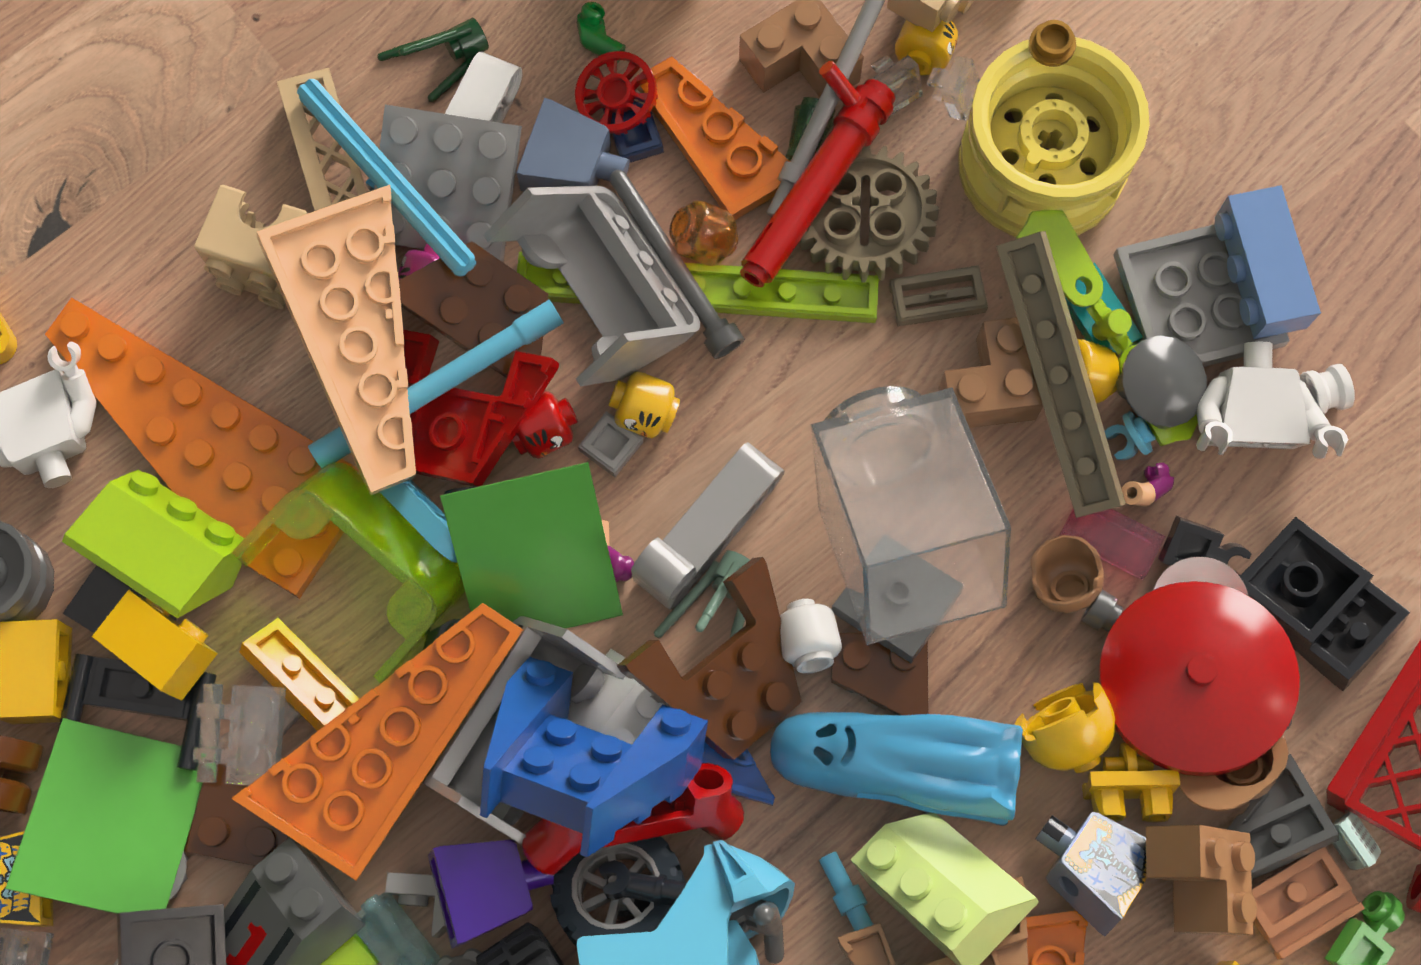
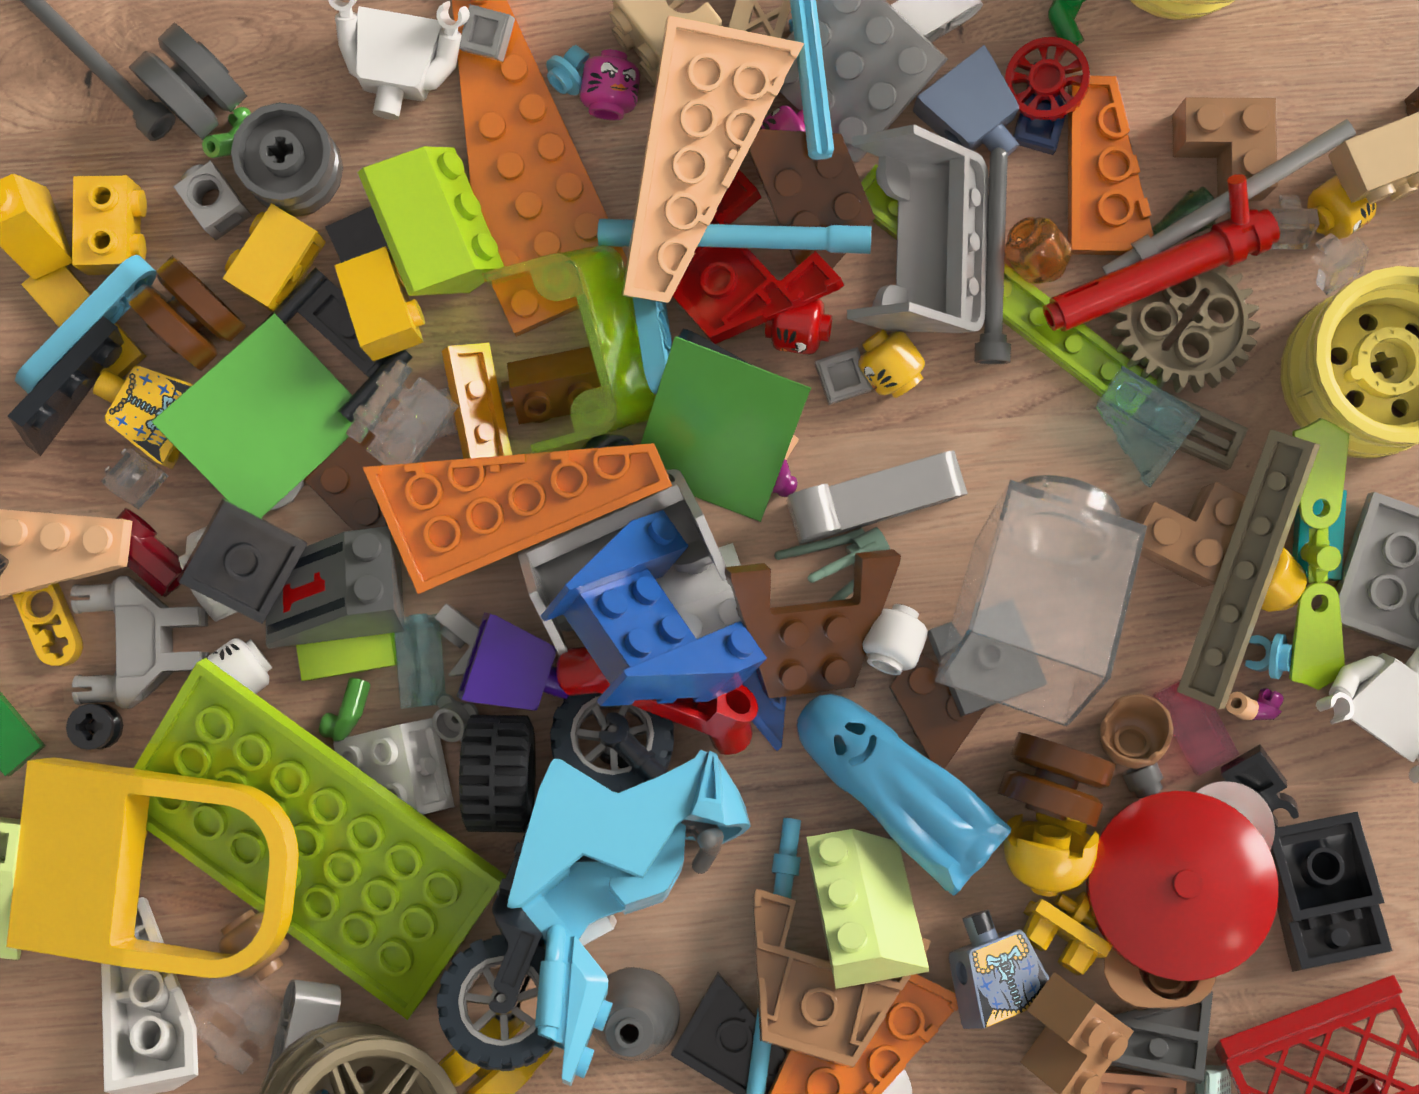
camera: 35 degrees right, 10 degrees up
(105, 354) = (486, 33): none -> light grey tile
(199, 343) = (567, 71): none -> medium azure plate
(244, 331) = (610, 85): none -> dark pink head
(356, 616) = (548, 384): none -> reddish brown brick
(892, 313) = (1146, 421): none -> clear light blue wing
(1026, 652) = (1056, 779): none -> reddish brown wheel
(1162, 381) = (1329, 629): dark grey dish -> none

